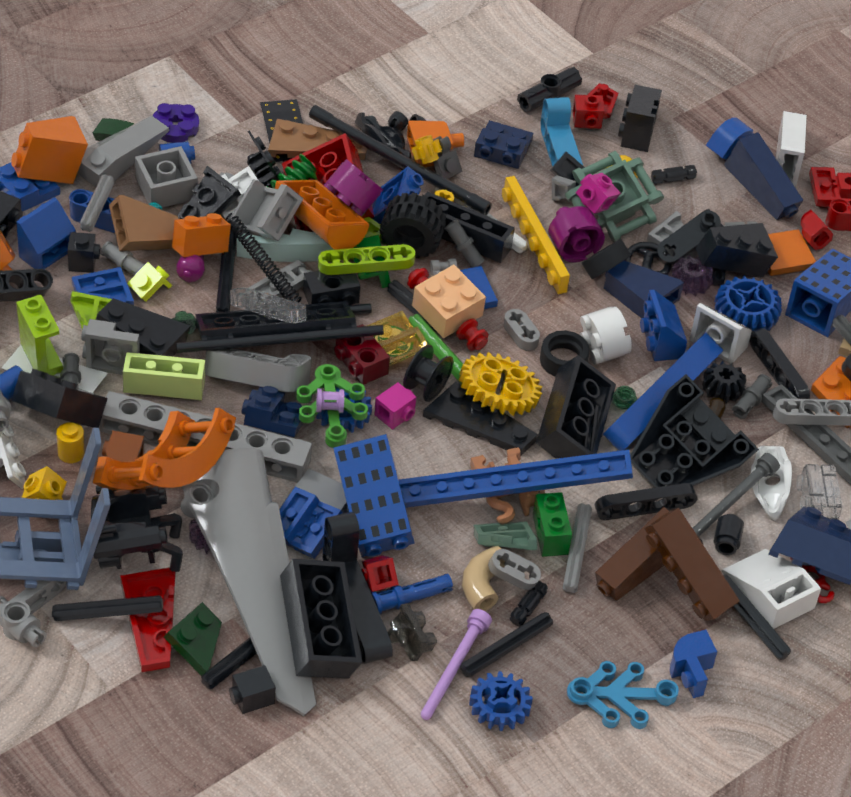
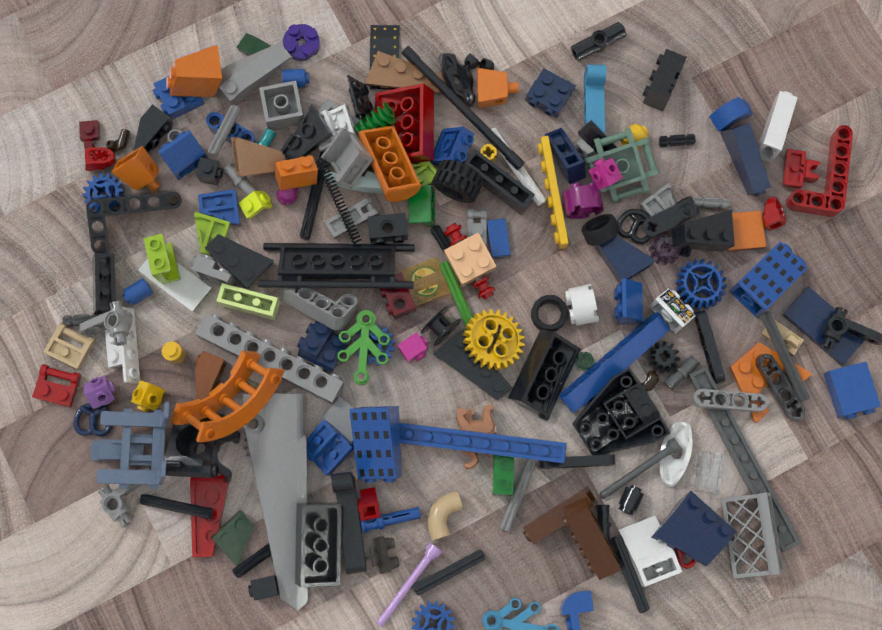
camera: 15 degrees right, 30 degrees up
(58, 398) = (167, 320): black wedge -> none
(71, 368) = (183, 291): dark grey pin -> none
(189, 318) = (272, 254): clear green plate -> none
(268, 305) = (337, 245): clear beam -> none
(327, 395) = (360, 351): lavender bush -> none
(353, 187) = (415, 150): magenta brick -> none
(366, 256) = (415, 214): lime beam -> none
(426, 149) = (483, 105): yellow gear -> none
(448, 162) = (500, 110): dark grey plate -> none
(464, 243) = (495, 200): dark grey pin -> none
(509, 535) = (468, 481): sand green wing -> none
(514, 569) = (467, 514): light grey beam -> none
(518, 331) = (519, 285): light grey beam -> none
(528, 603) = (472, 538): black axle -> none
(544, 197) = (567, 156): none -> dark blue slope
(589, 111) = (623, 70): red brick -> none
(609, 96) = (640, 53): red piece -> none

